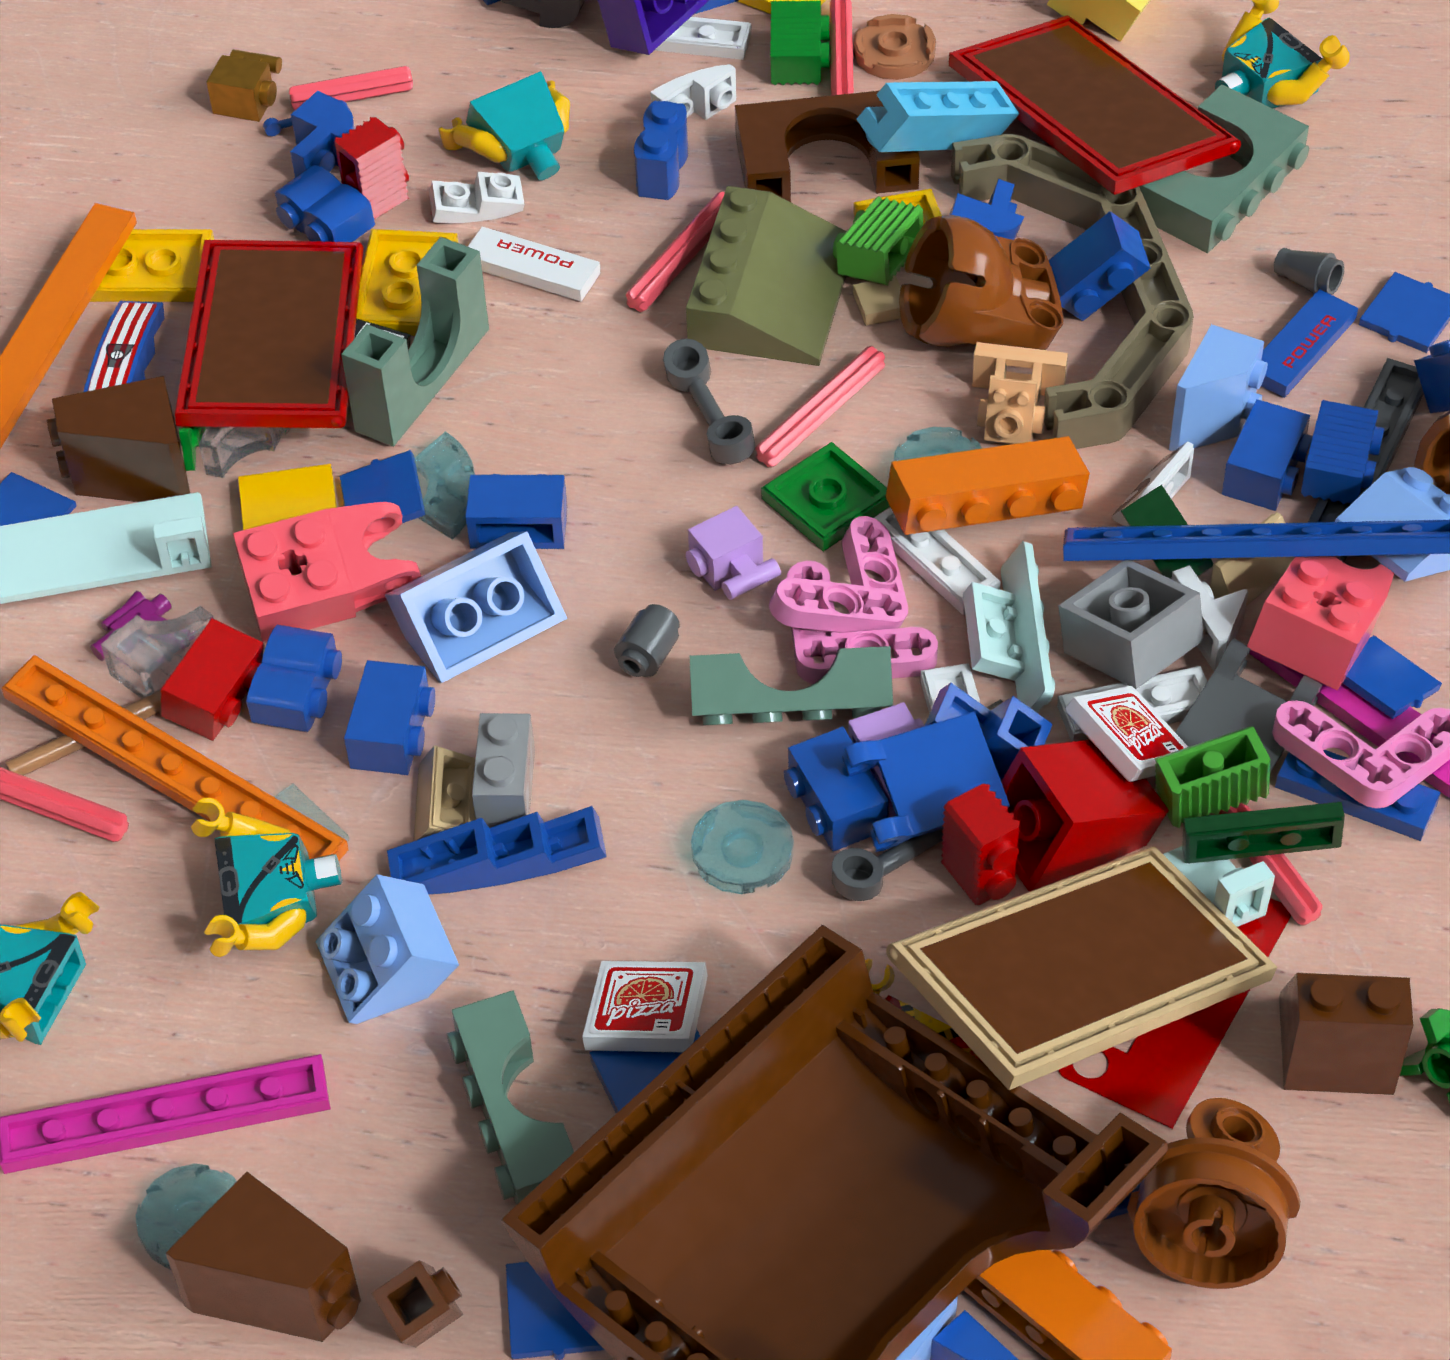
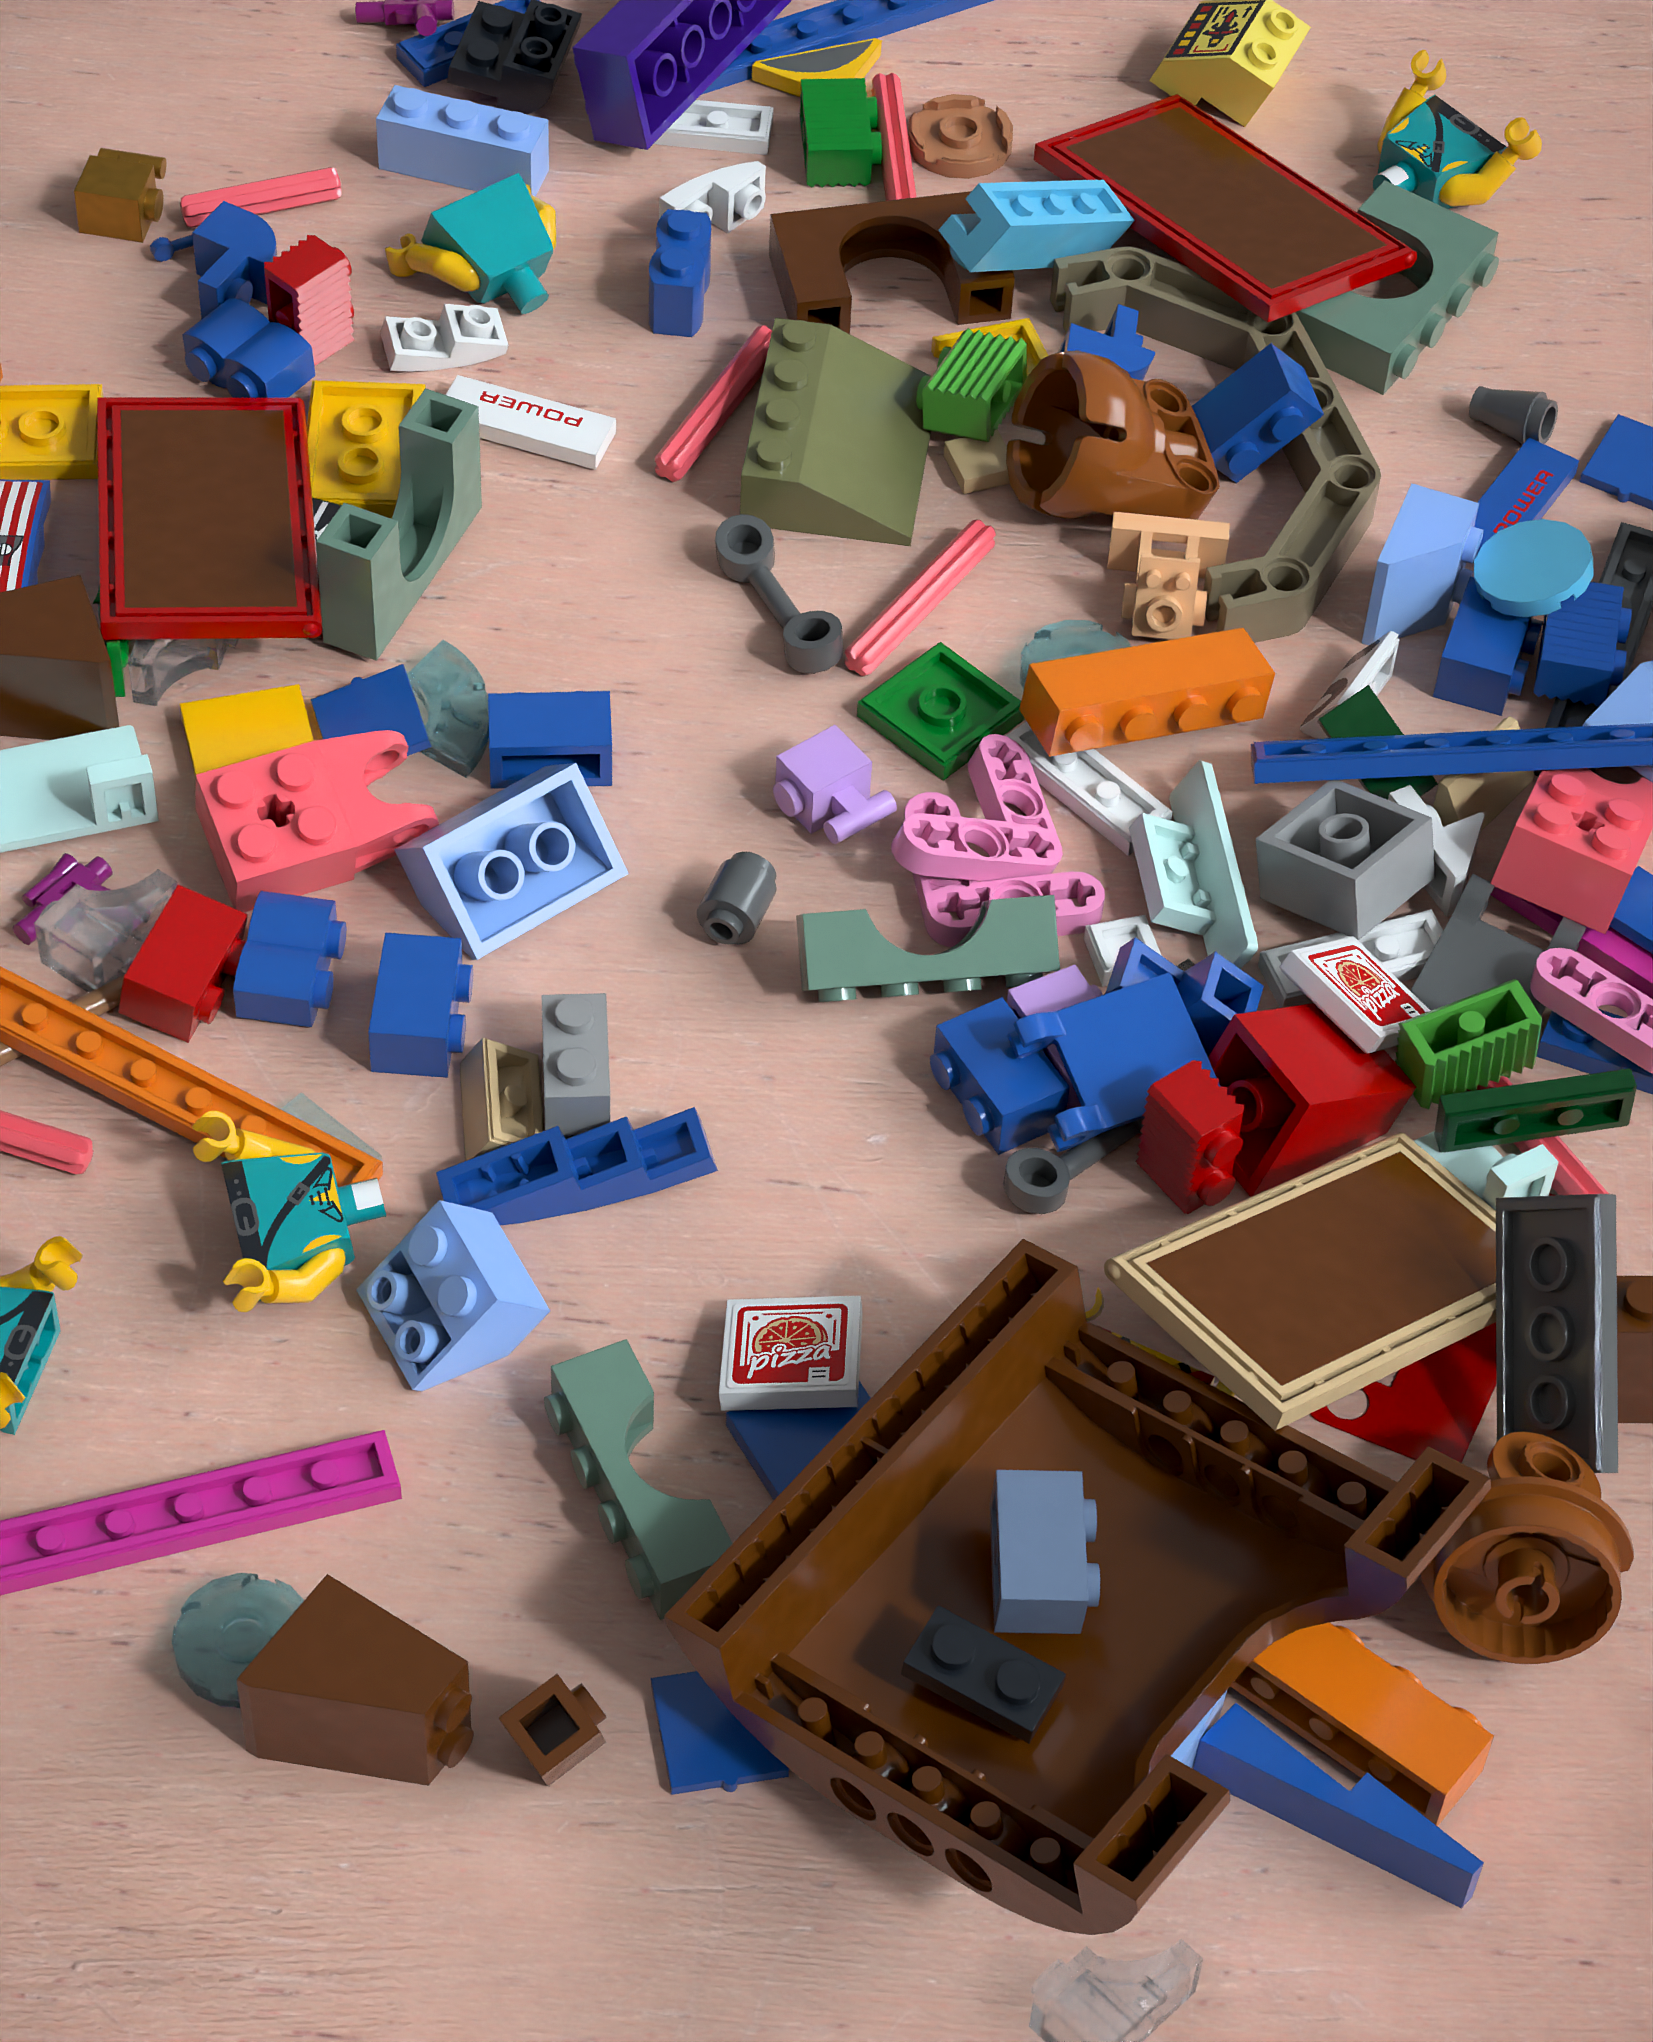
camera: 10 degrees left, 0 degrees up
(505, 46) = (459, 141): none -> light blue brick
(742, 846) = (886, 1151): clear light blue tile -> none
(757, 1278) = (983, 1674): none -> black plate
(810, 1180) = (1041, 1552): none -> sand blue brick
(1257, 1010) = (1558, 1322): none -> dark grey tile
(1305, 393) = (1533, 567): none -> medium azure tile

